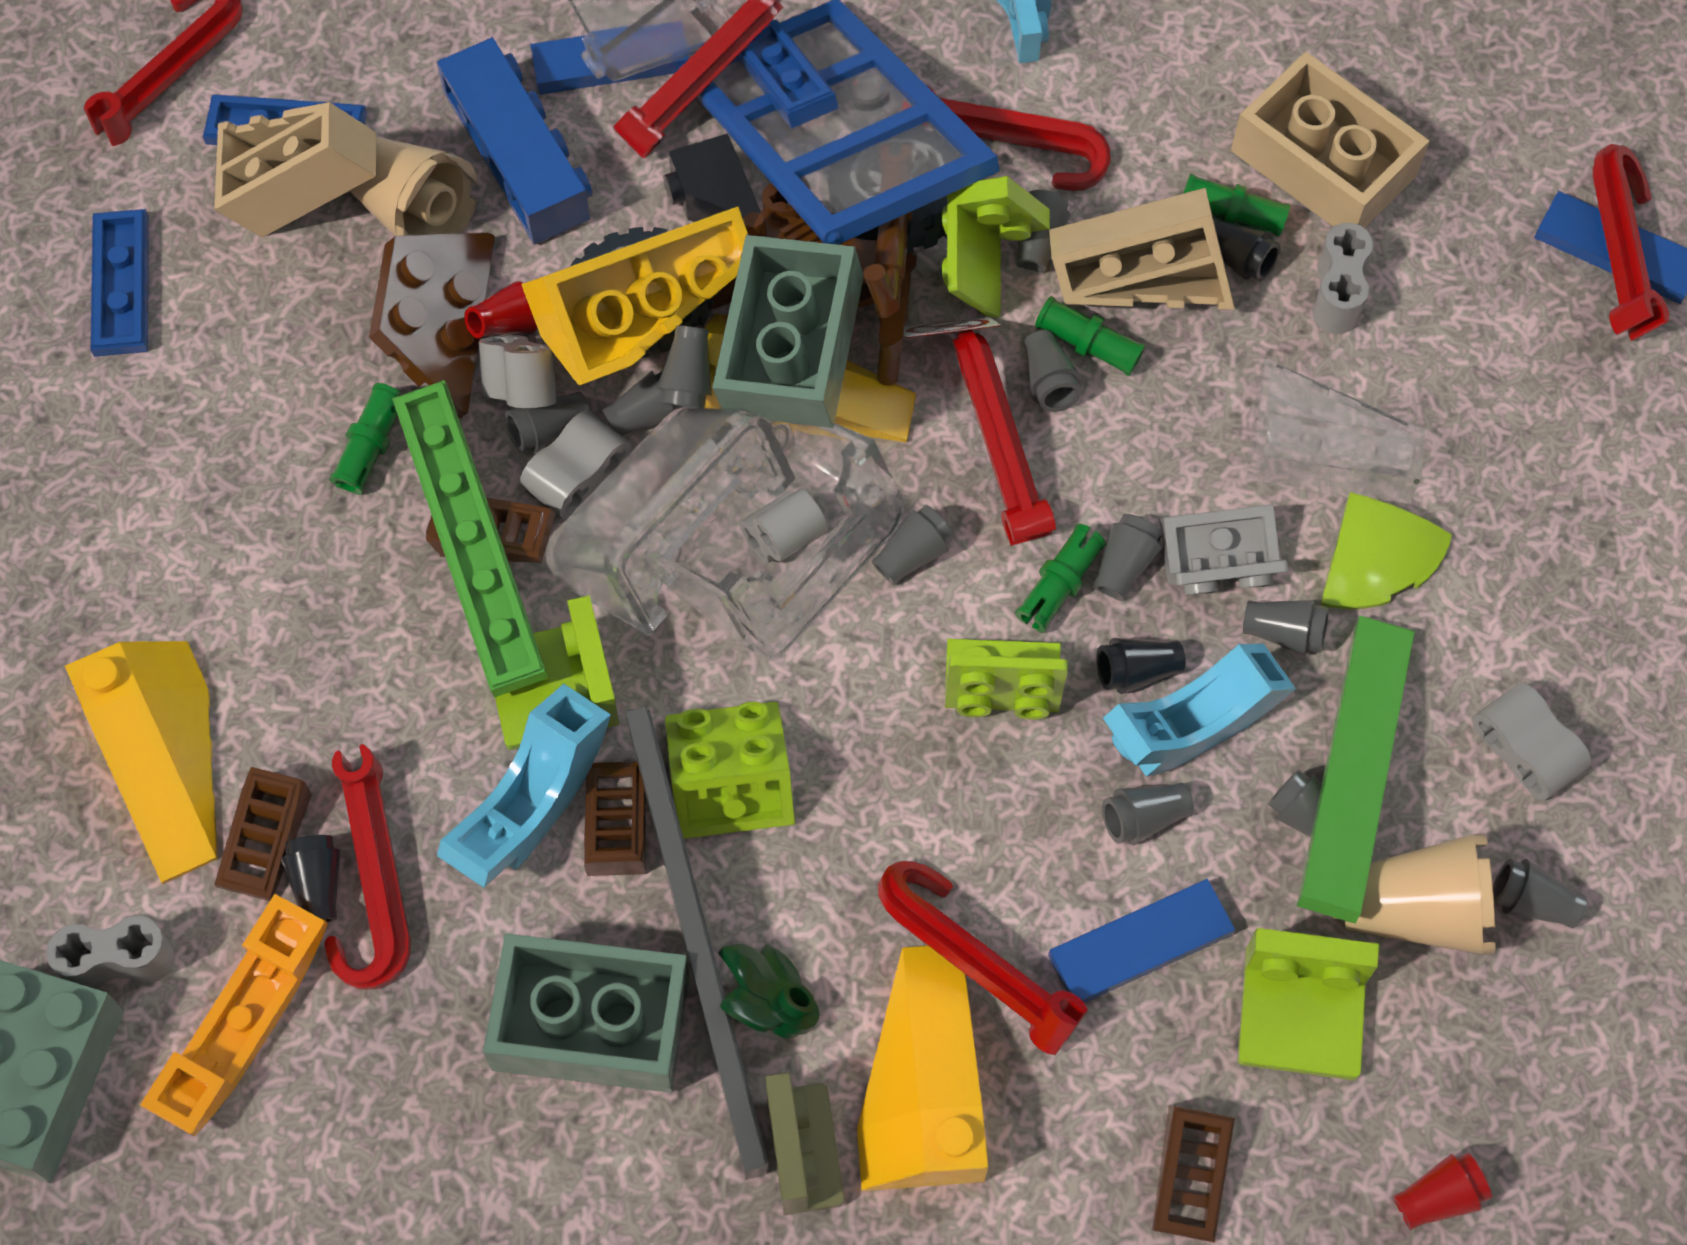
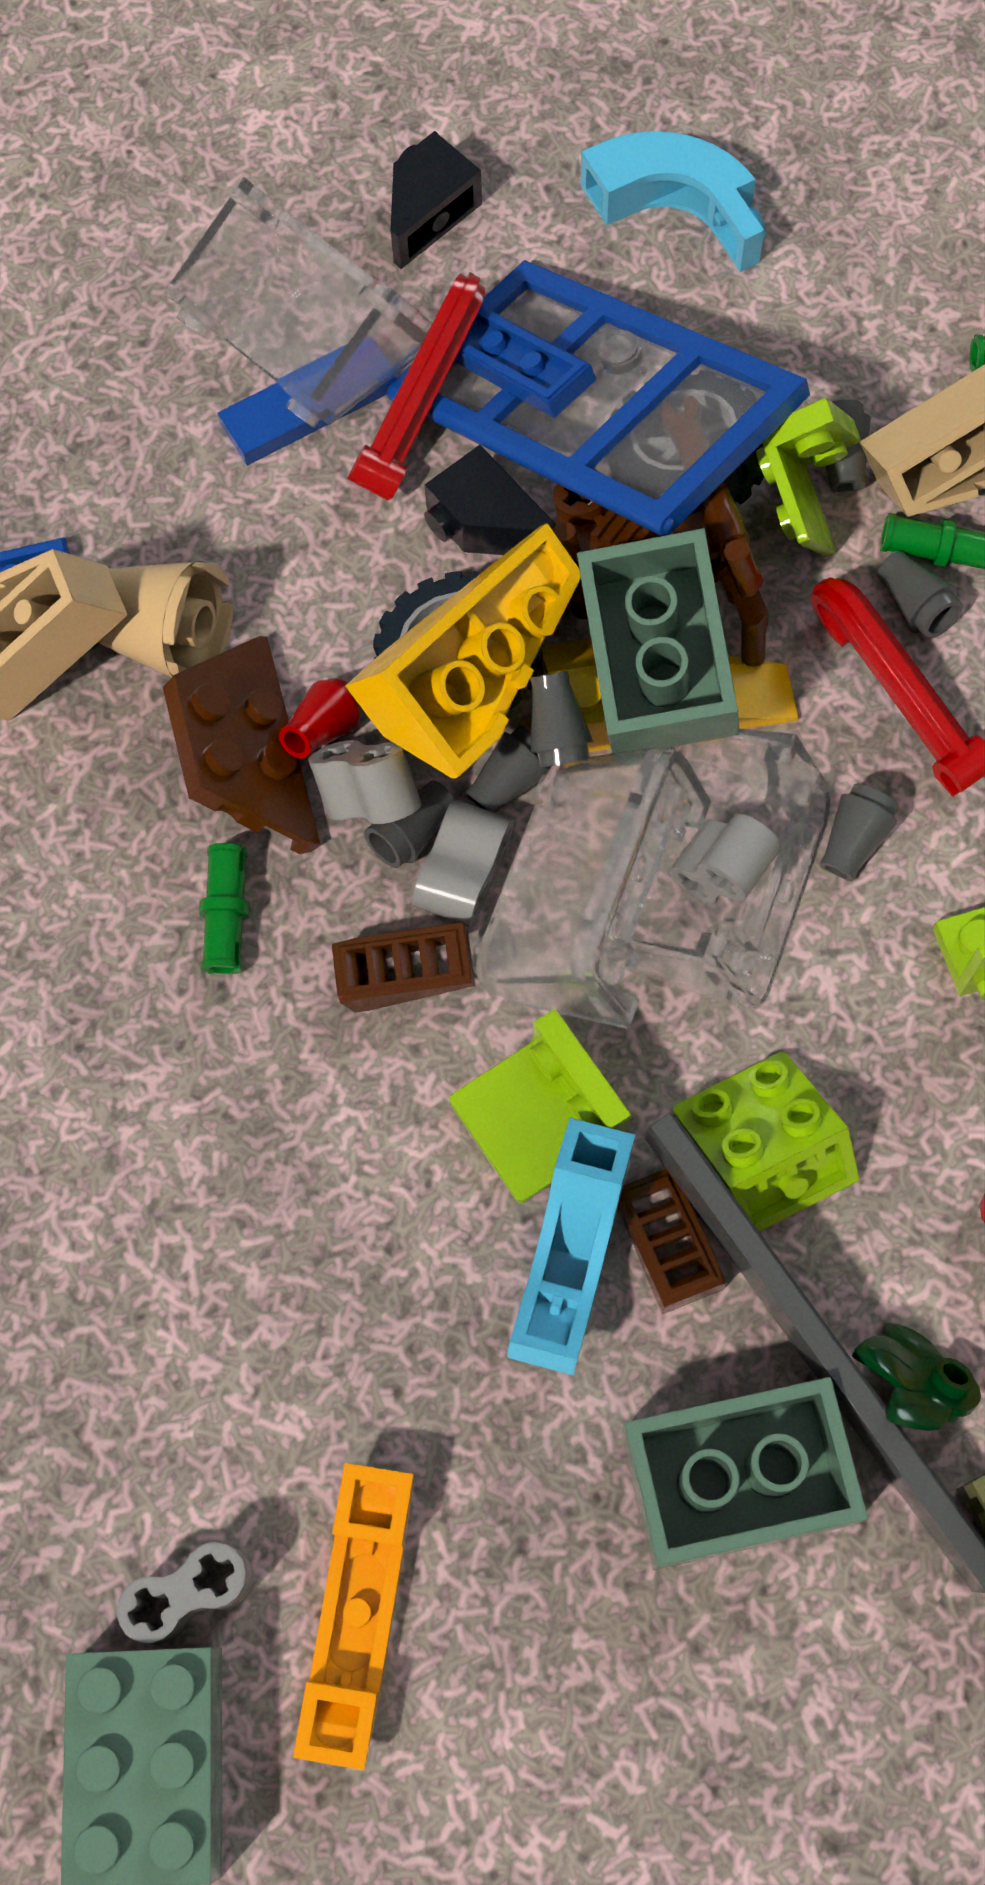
camera: 15 degrees left, 5 degrees up
(155, 736) = (127, 1322): yellow wedge -> none
(249, 806) = (290, 1336): reddish brown slope -> none
(313, 874) = (372, 1423): black cone -> none
(377, 876) = (442, 1400): red piece -> none
(470, 539) = (392, 986): bright green tile -> none
(515, 140) = (249, 523): blue brick -> none
(949, 326) = (805, 579): sticker -> none
(1040, 133) = (811, 338): red piece -> none

